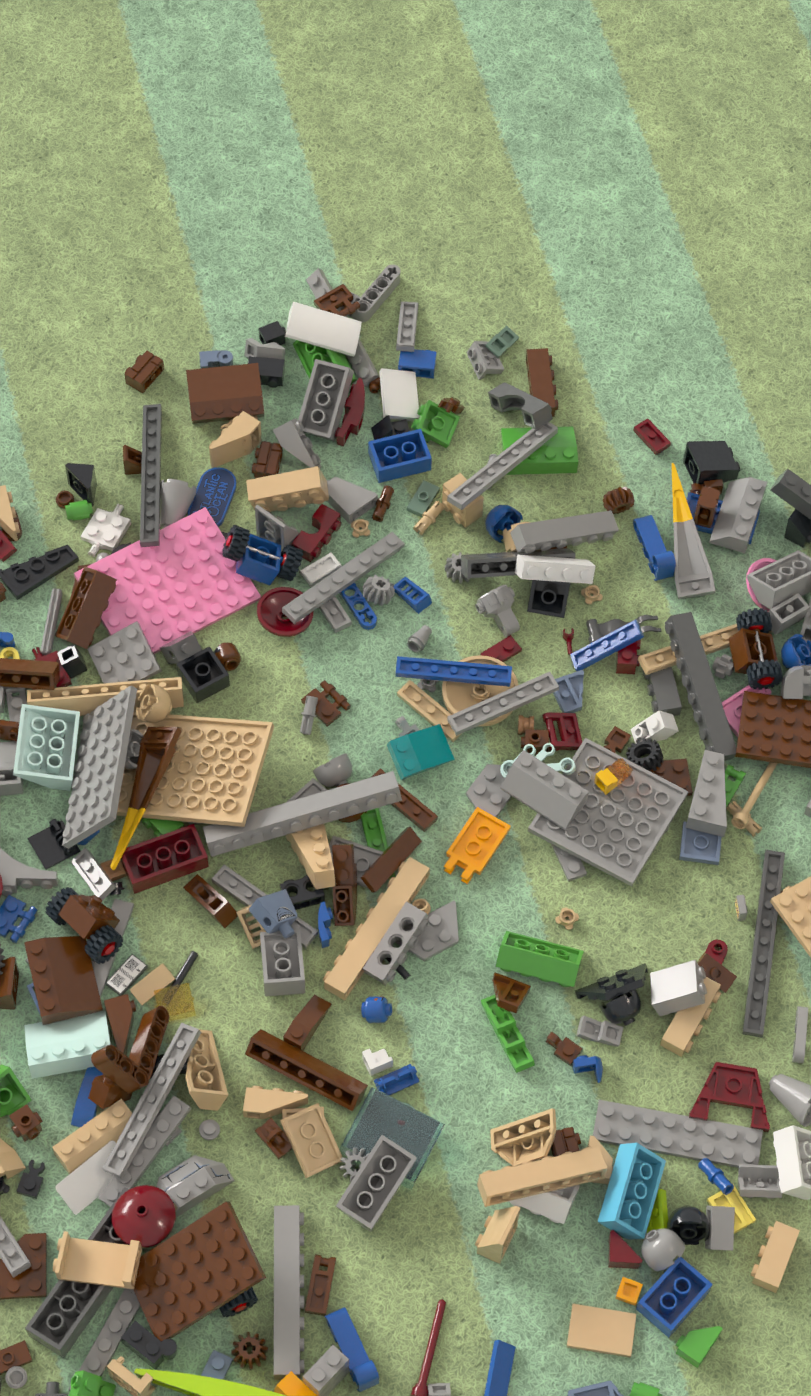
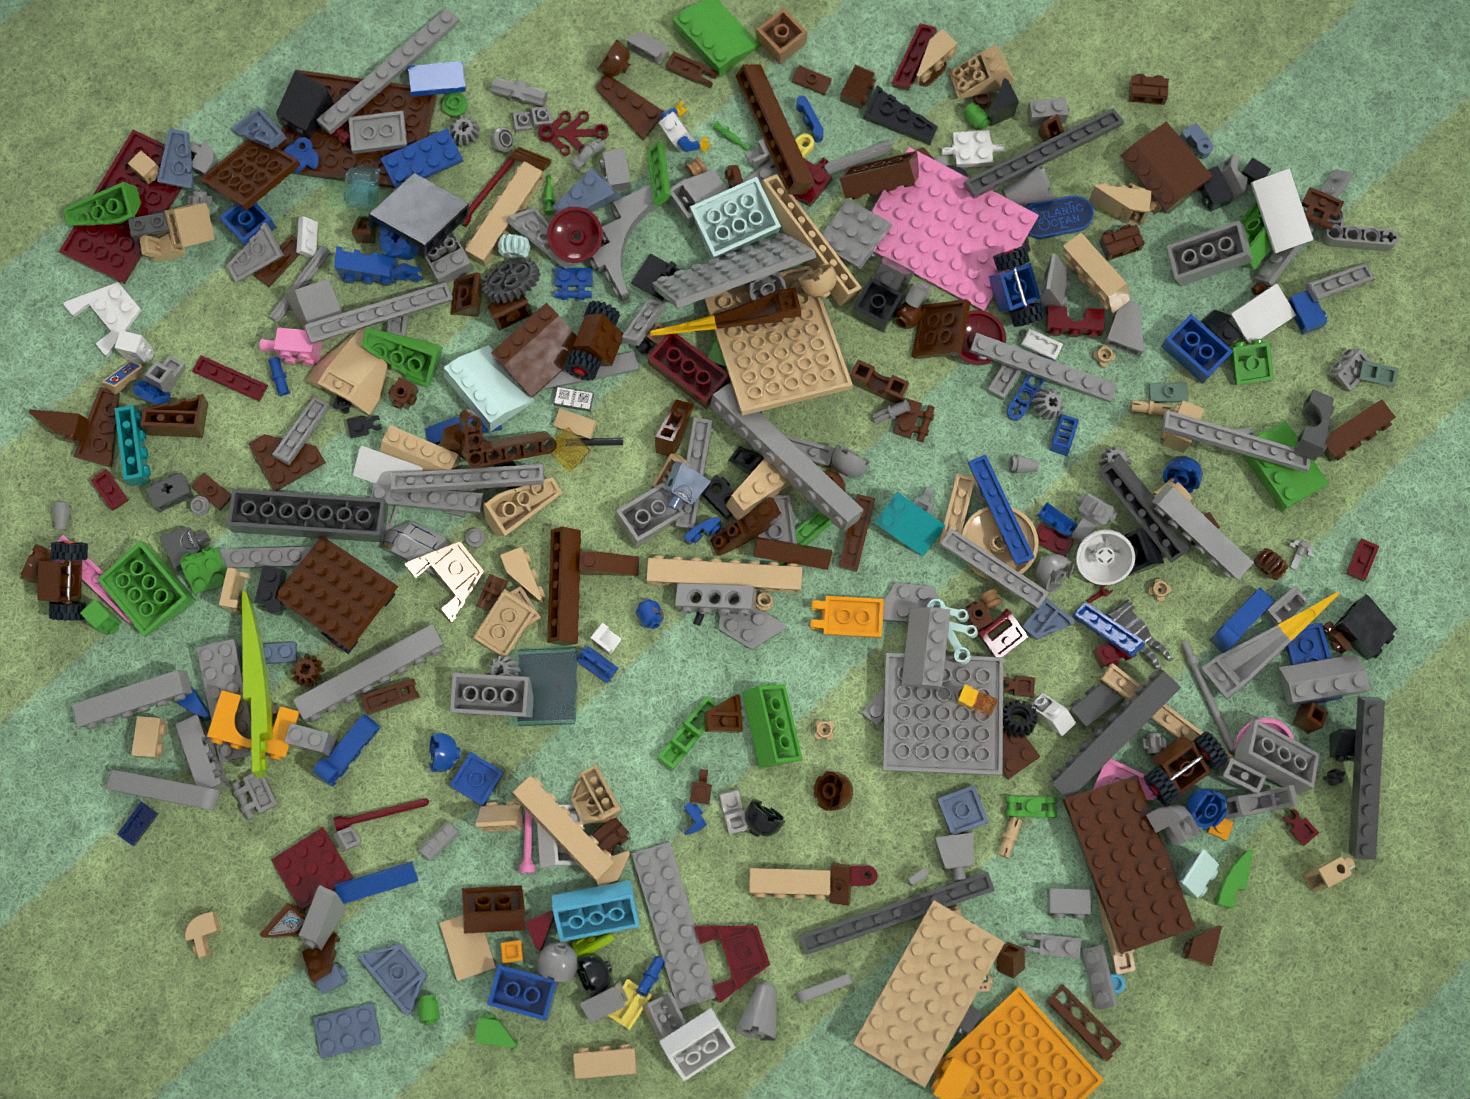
camera: 65 degrees right, 15 degrees up
(42, 485) = (981, 73): none -> tan slope
(72, 661) = (827, 194): black brick -> none
(97, 1262) = (309, 512): tan panel -> none
(112, 455) = (1041, 110): none -> light grey brick
(121, 1019) = (528, 417): reddish brown slope -> none
(153, 1224) = (373, 535): dark red dish -> none
(216, 636) = (918, 294): none -> light grey piece
(233, 1160) = (456, 570): none -> wing
(260, 634) = (941, 329): none -> reddish brown plate
(280, 855) = (745, 459): none -> black slope
(287, 704) = (867, 378): none -> reddish brown arch
(294, 441) = (1152, 254): light grey slope -> none
(354, 413) = (1224, 285): dark red slope -> none
(383, 503) = (1140, 361): reddish brown pin -> none
(404, 1259) = (443, 752): none -> blue cylinder
(446, 1242) = (477, 779): none -> blue plate
(451, 405) = (1280, 365): reddish brown plate -> none
(485, 637) = (1057, 520): none -> blue hinge
(487, 1306) = (439, 841): none -> light grey axle
(528, 662) = (1053, 569): none -> light grey cylinder
(542, 614) = (1105, 566): none -> white piece
(552, 1237) = (526, 864): none -> bright pink piece
(554, 569) = (1155, 543): white brick -> none
(581, 1285) = (493, 909): none -> reddish brown slope
(614, 986) = (780, 804): black wing -> none
(615, 471) = (1302, 546): none -> light grey piece
(628, 935) = (833, 791): none -> reddish brown cylinder
(659, 509) = (1286, 606): none -> light grey hinge
(667, 602) = (1192, 661): none -> light grey bar
(678, 988) = (803, 858): brick -> none
(706, 507) = (1309, 646): reddish brown brick -> none
(709, 798) = (1006, 795): light grey wedge -> none
(736, 866) = (956, 853): none -> light grey torso
(740, 818) = (1002, 835): tan piece -> none
(764, 540) = (1310, 717): none -> reddish brown brick

